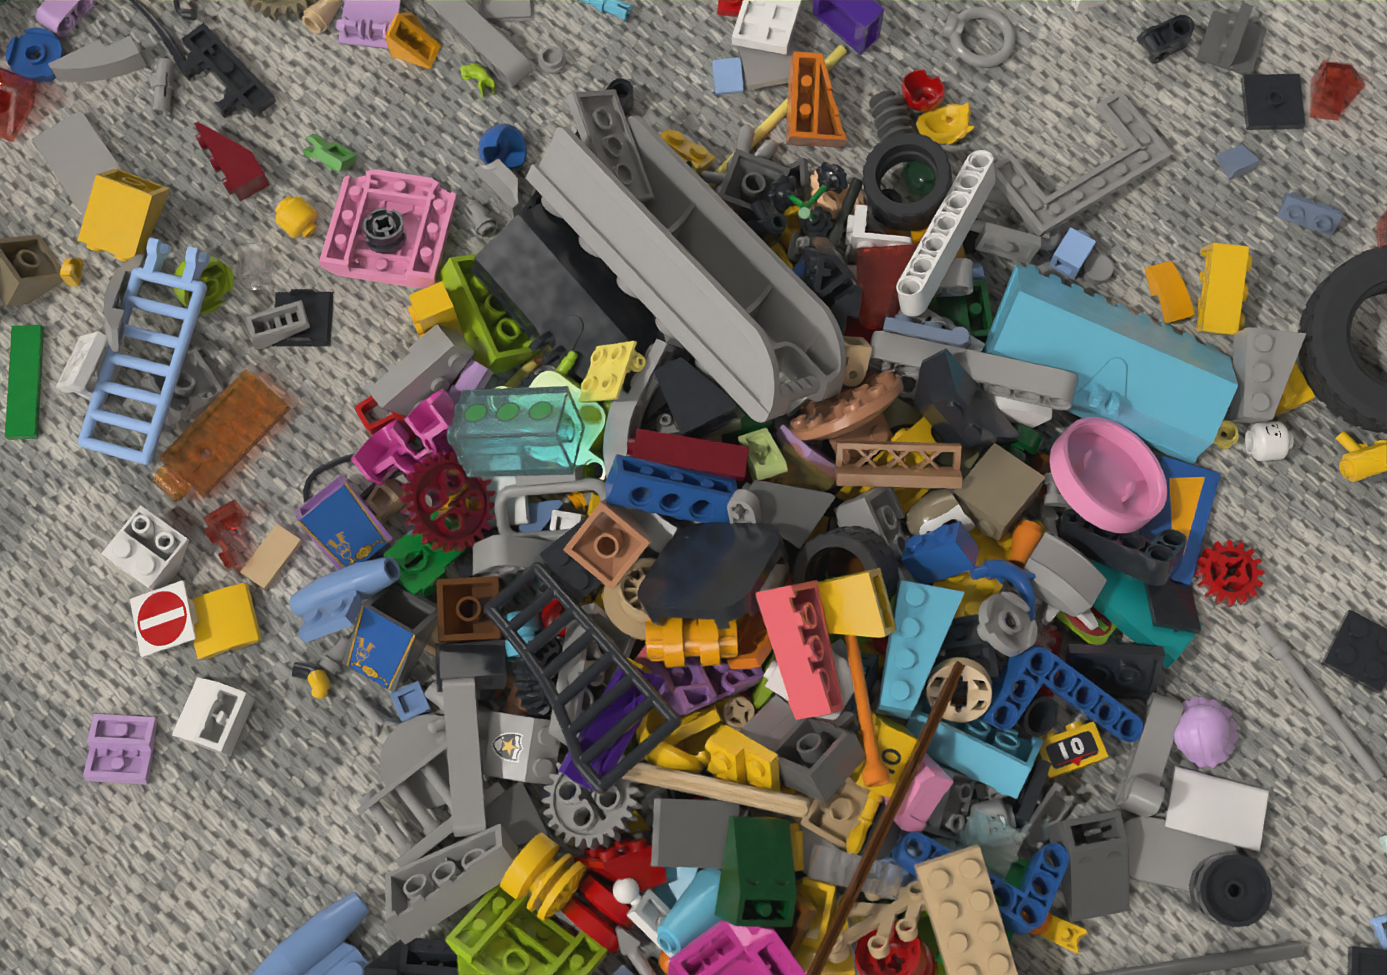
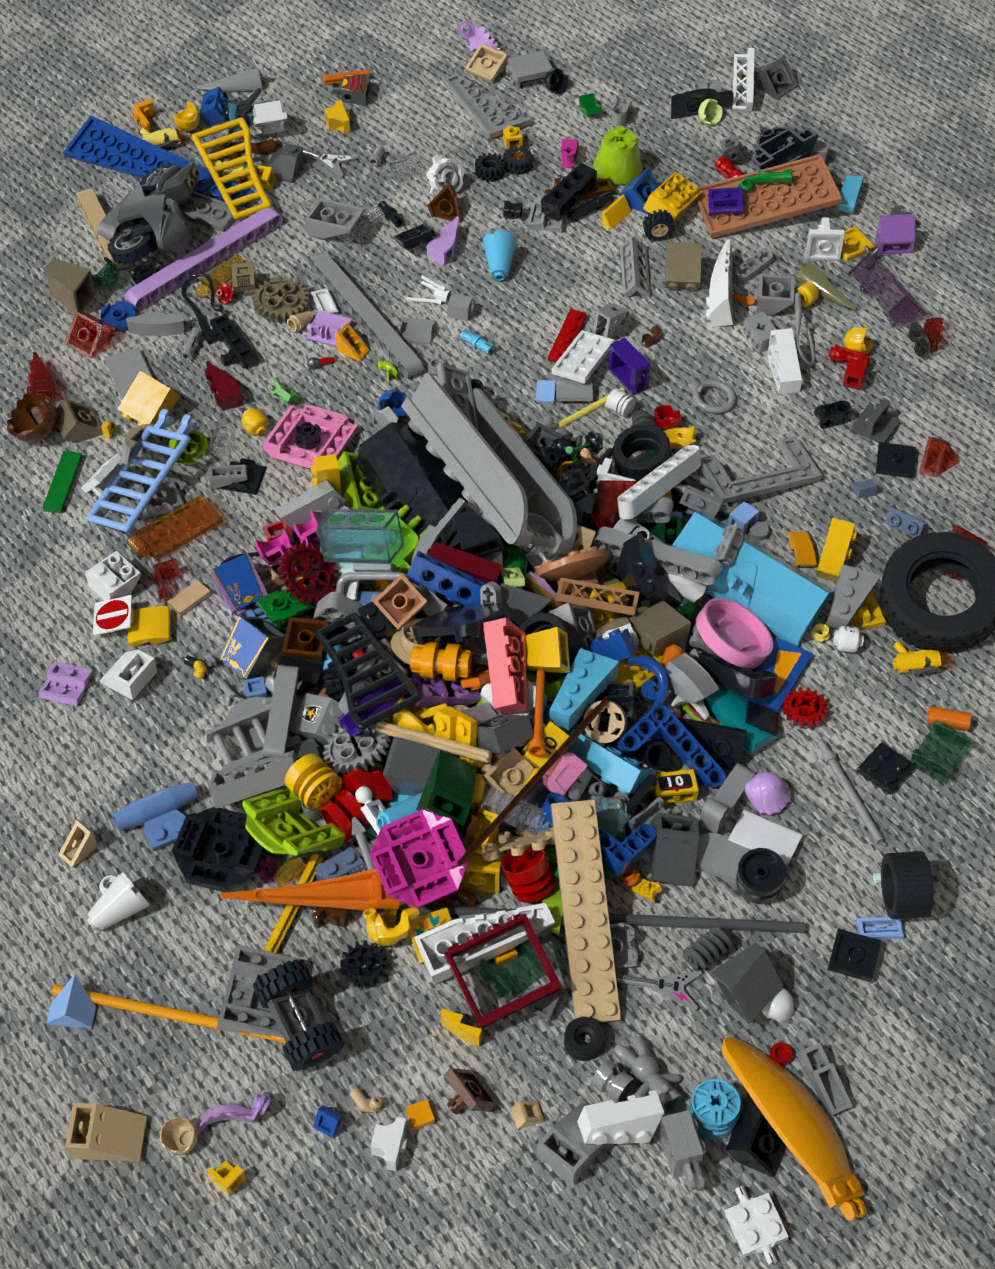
camera: 10 degrees right, 20 degrees down
(336, 598) = (229, 612): medium blue plate -> none
(361, 86) = (314, 362): none -> piece
(609, 370) = (427, 511): light yellow hinge -> none
(811, 105) = (593, 410): orange wedge -> none
(847, 76) = (620, 402): none -> white piece
(929, 331) = (633, 528): sand blue plate -> none
(994, 629) = (645, 697): light grey plate -> none
(1081, 325) = (730, 537): none -> light grey hinge

